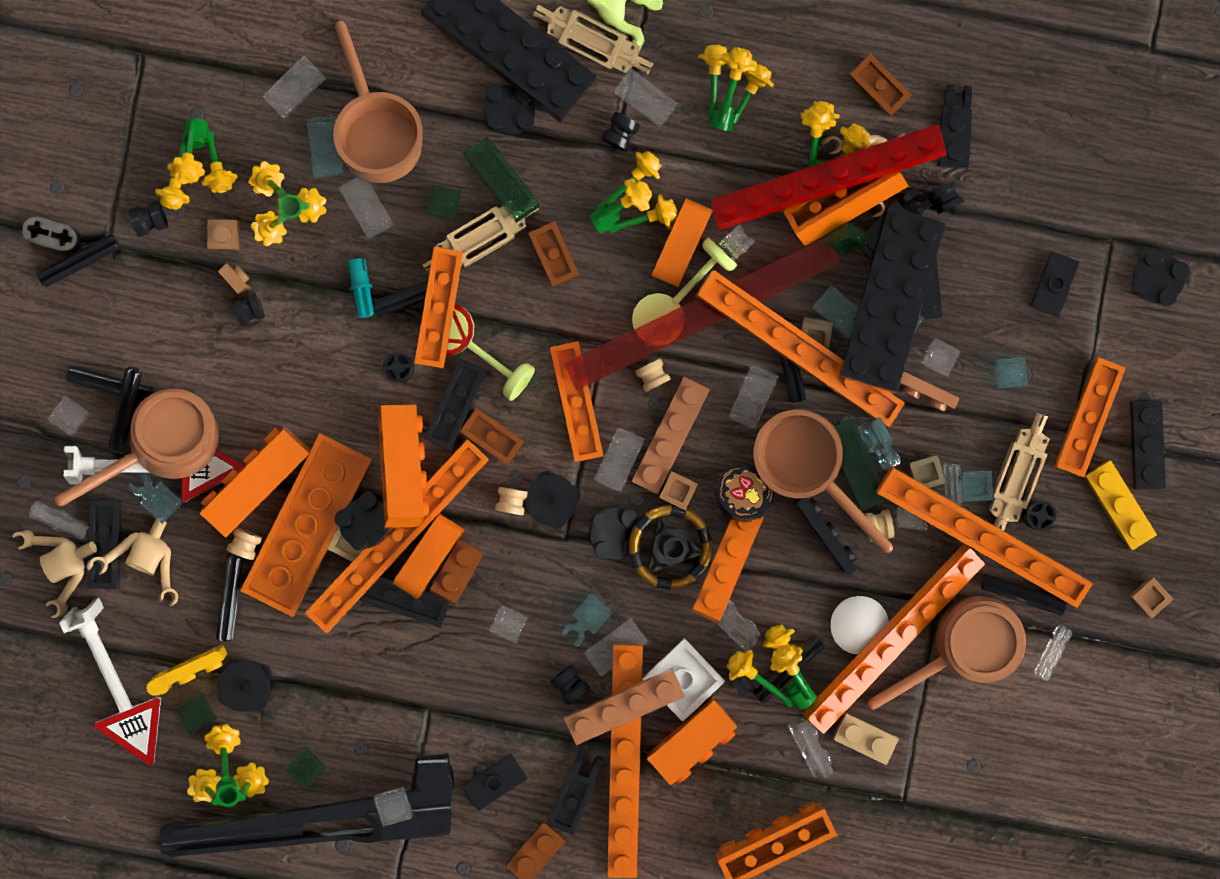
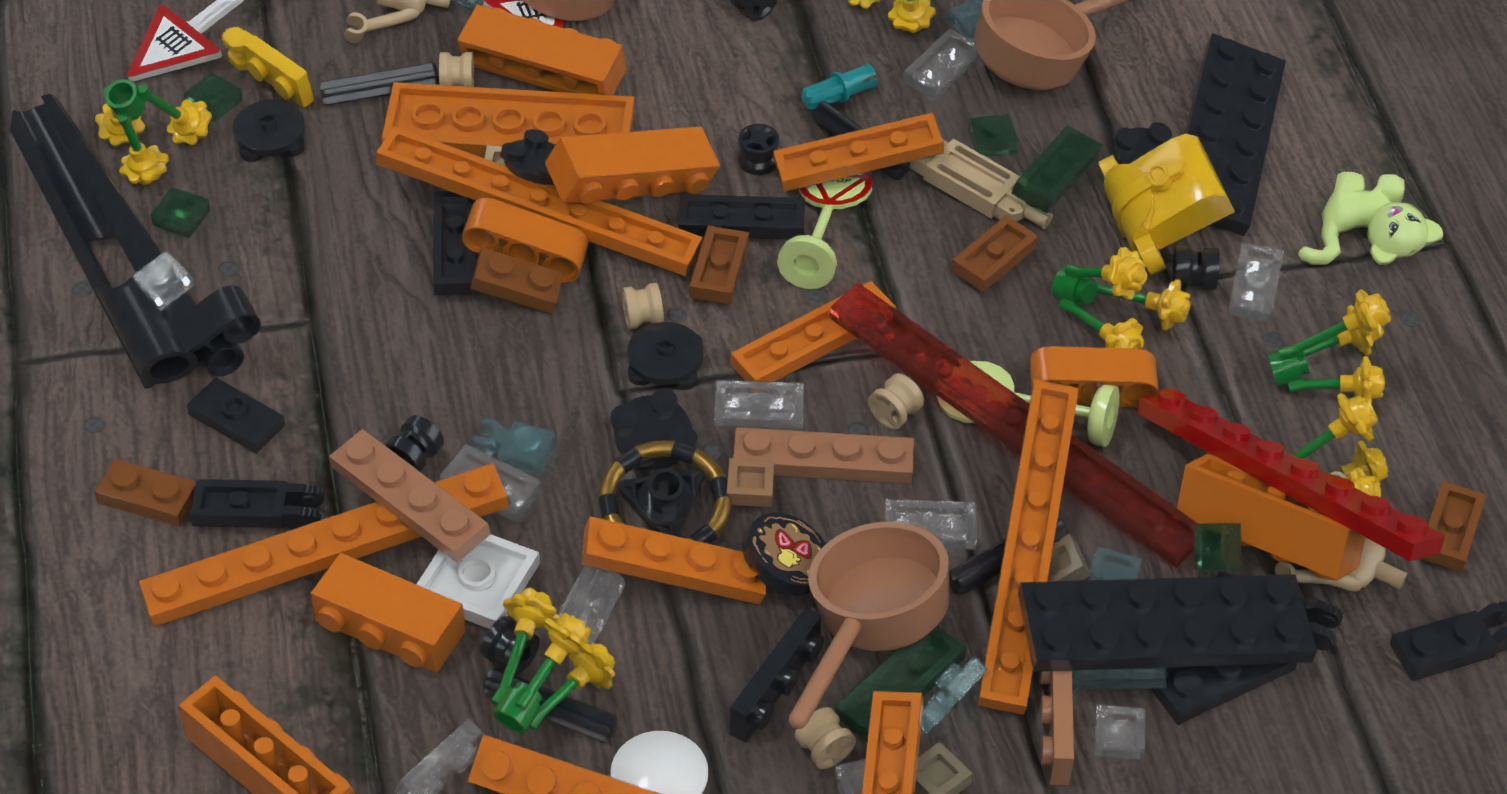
camera: 70 degrees right, 40 degrees down
(508, 623) = (470, 357): clear plate -> none
(563, 126) = (1164, 196): none -> yellow piece
(566, 25) = (1295, 230): tan piece -> none
(737, 242) = (1132, 434): clear wheel -> none
(946, 197) = (1353, 655): black wheel -> none

